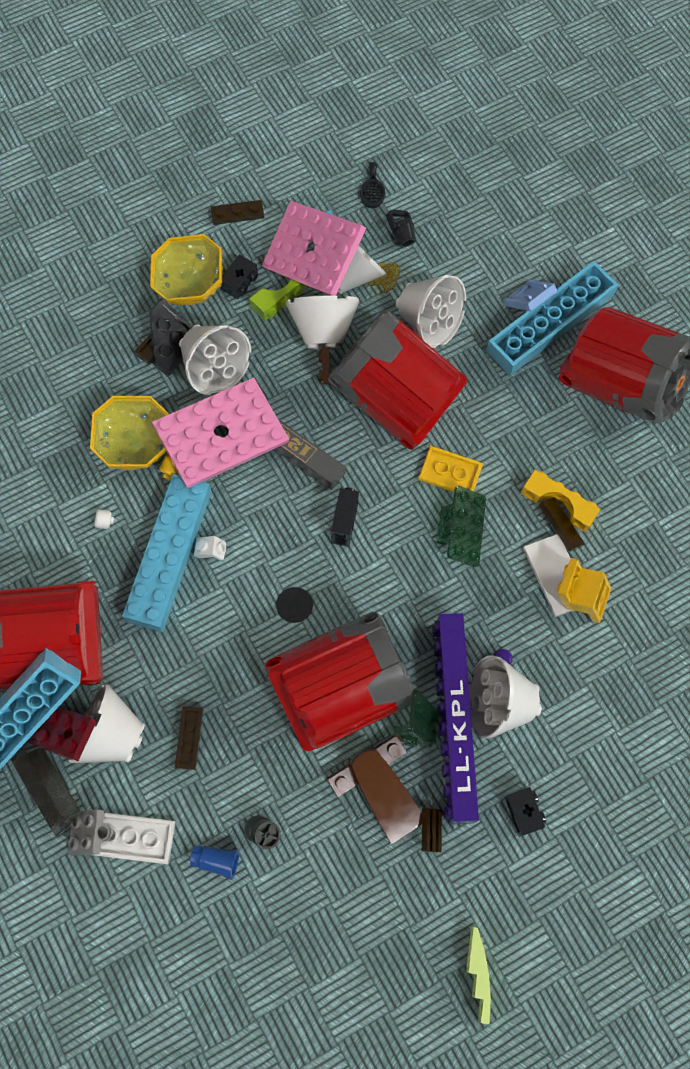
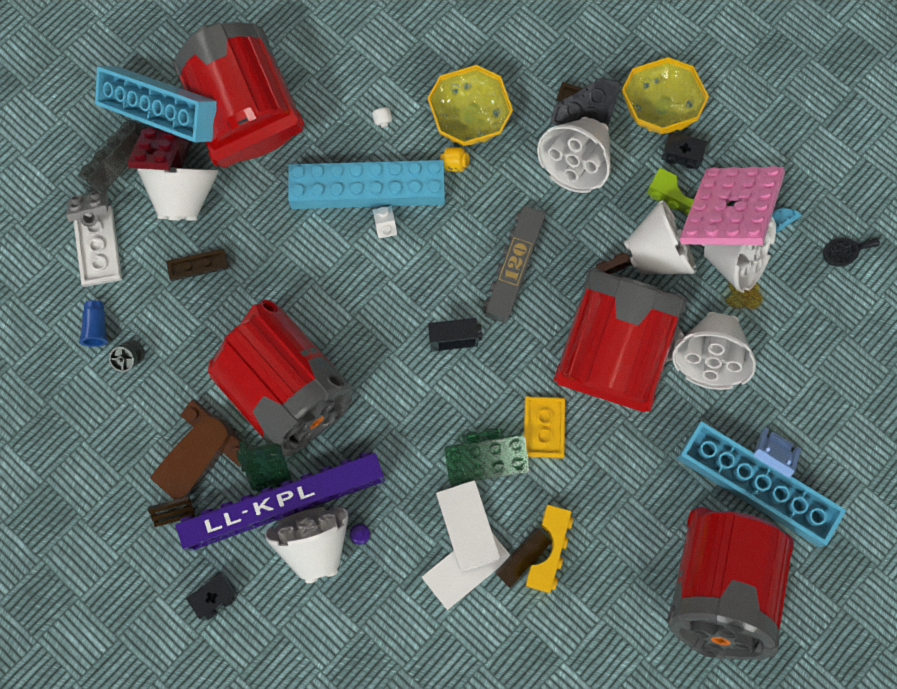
camera: 75 degrees right, 5 degrees up
(200, 453) = (507, 216): bright pink plate -> none
(237, 212) = (760, 125): dark brown plate -> none
(294, 605) = (355, 318): black sticker -> none
(403, 228) = (806, 296): black piece -> none
(478, 966) = (56, 590): yellowish green slope -> none
(522, 561) = (468, 526): none -> white tile
(584, 590) = (452, 597): yellow bracket -> none

